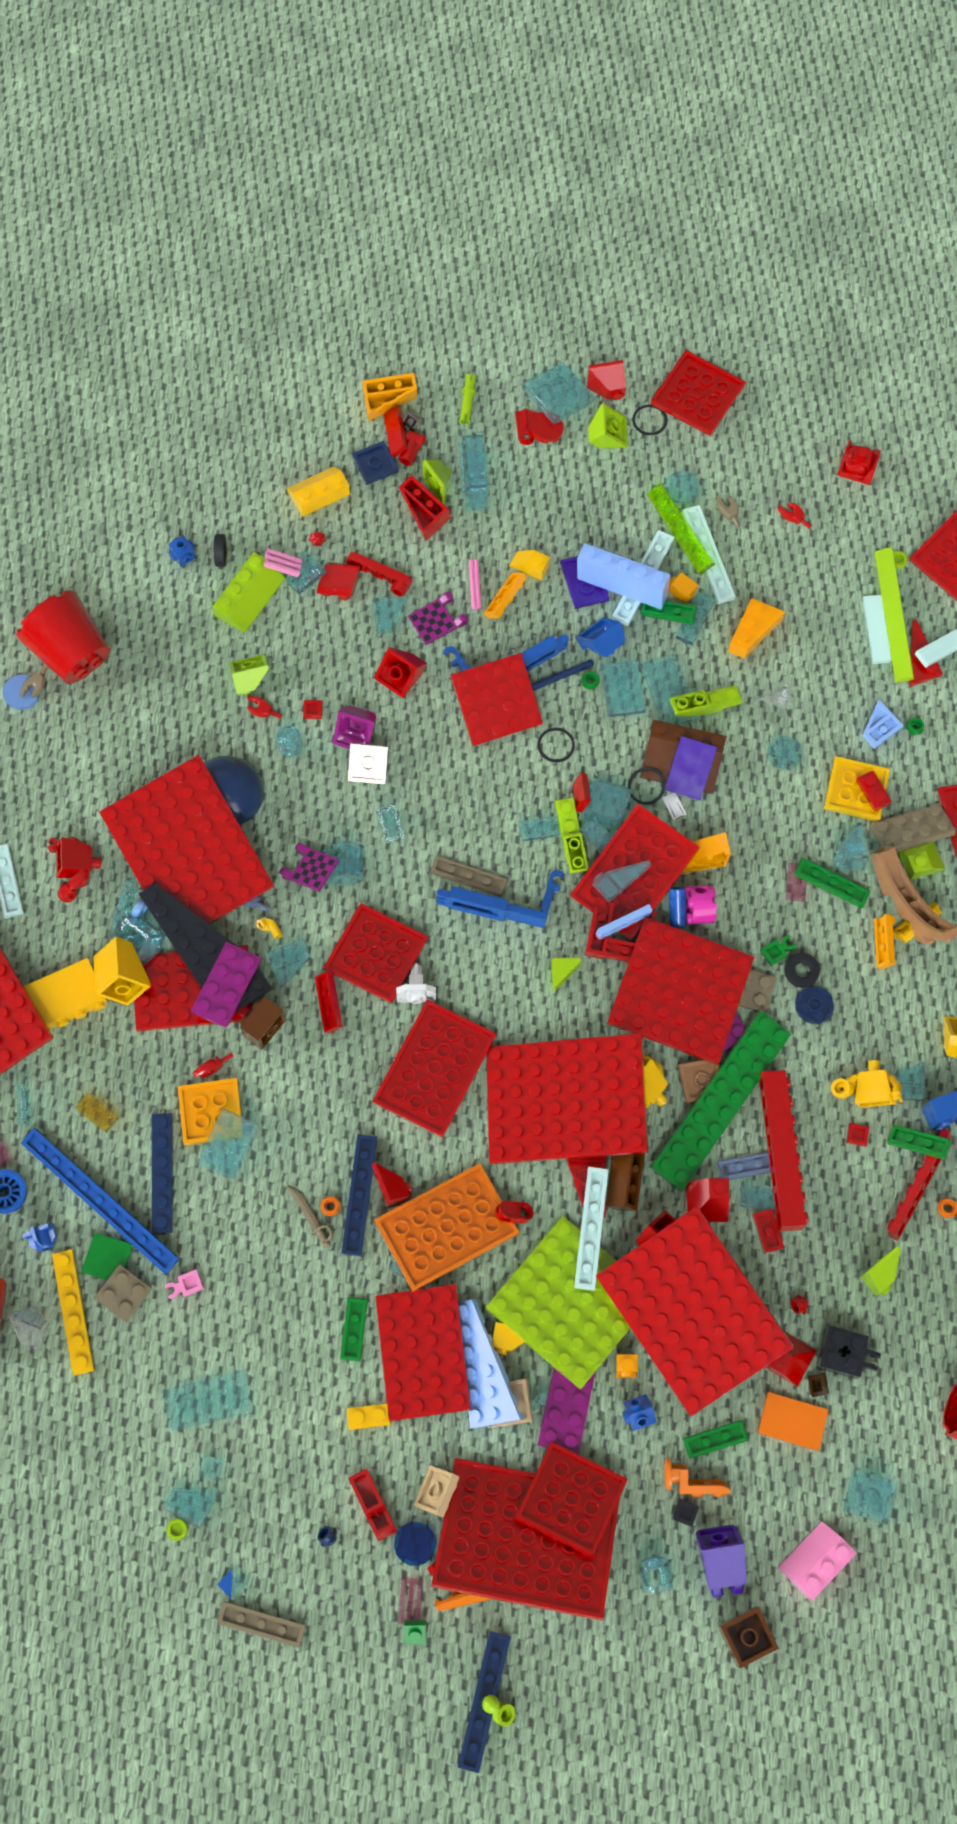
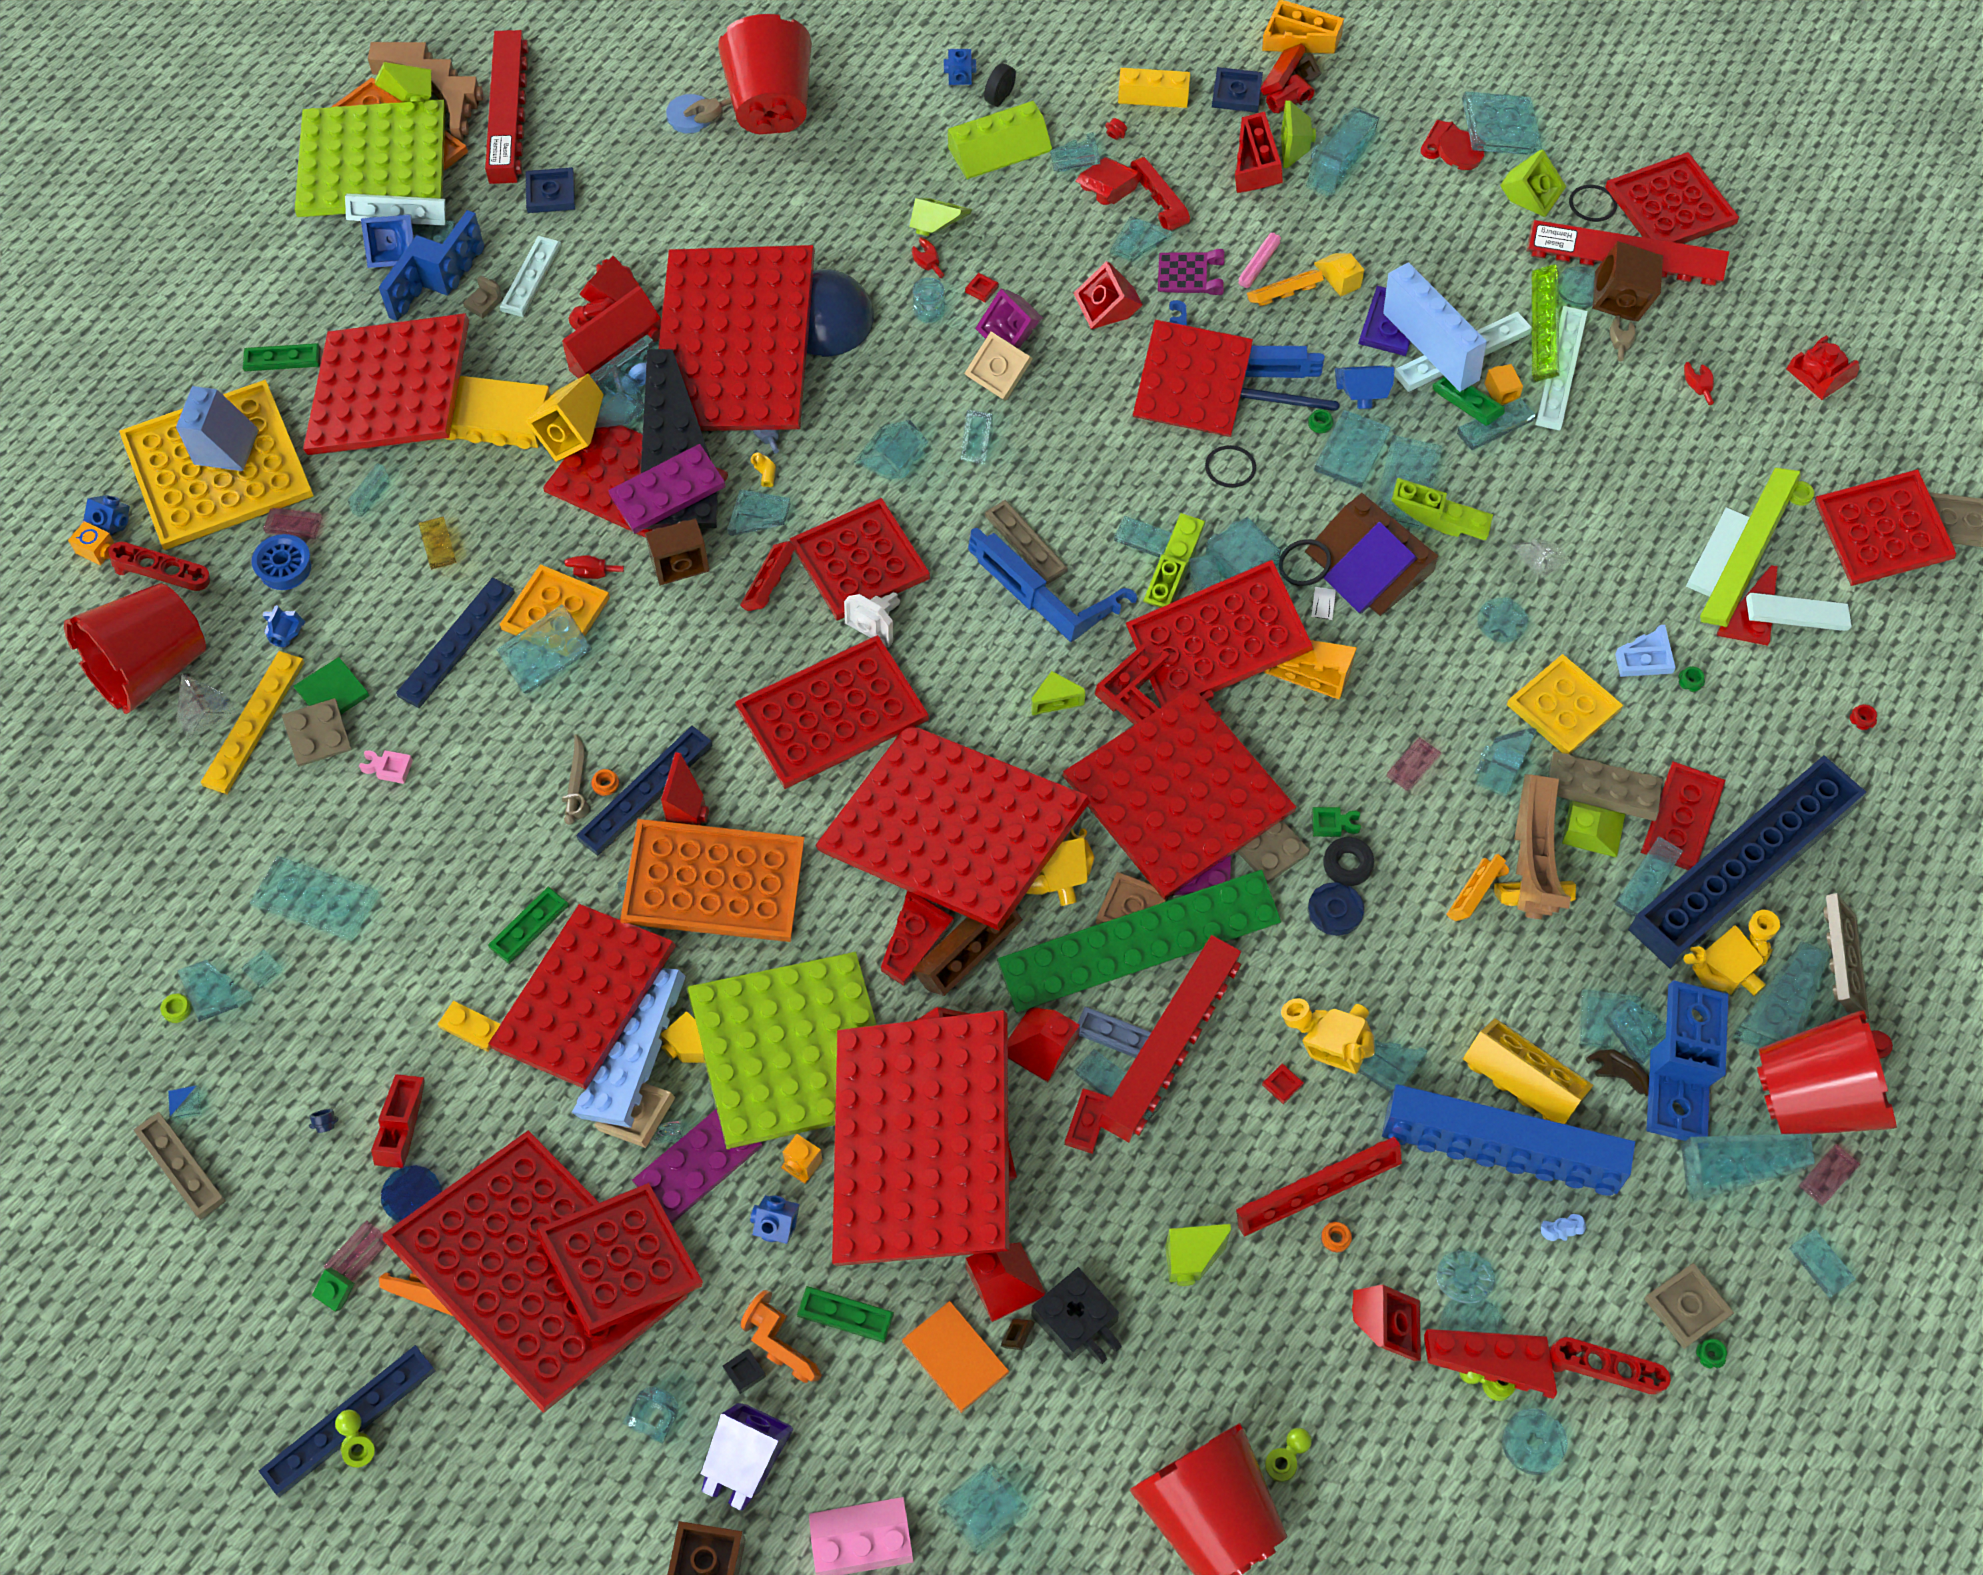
camera: 35 degrees right, 10 degrees down
(100, 1201) = (370, 631): blue plate -> none
(103, 895) = (611, 333): none -> red slope
(283, 560) = (1059, 127): bright pink tile -> none
(312, 870) = (853, 435): magenta flag -> none
(436, 1491) = (467, 1154): tan plate -> none
(468, 392) = (1396, 74): lime pin -> none
(510, 1212) = (795, 907): red piece -> none
(581, 792) = (1219, 523): red tile -> none
(591, 1228) = (873, 979): light aqua plate -> none
(607, 380) = (1568, 133): slope -> none
(617, 880) = (1188, 630): clear light blue slope -> none
(624, 922) = (1162, 676): light blue tile -> none
(677, 907) = (1243, 702): blue axle -> none
(696, 447) = (1593, 246): none -> red brick
(700, 904) = (1272, 714): dark pink brick -> none
(713, 471) = (1627, 282): none -> reddish brown brick
(754, 627) = (1559, 467): light orange wedge -> none
(802, 1304) = (1064, 1228): red plate -> none
(831, 882) = (1457, 787): green tile -> none
(873, 791) = (1583, 715): red plate -> none
(919, 1142) = (1353, 1135): green tile -> none

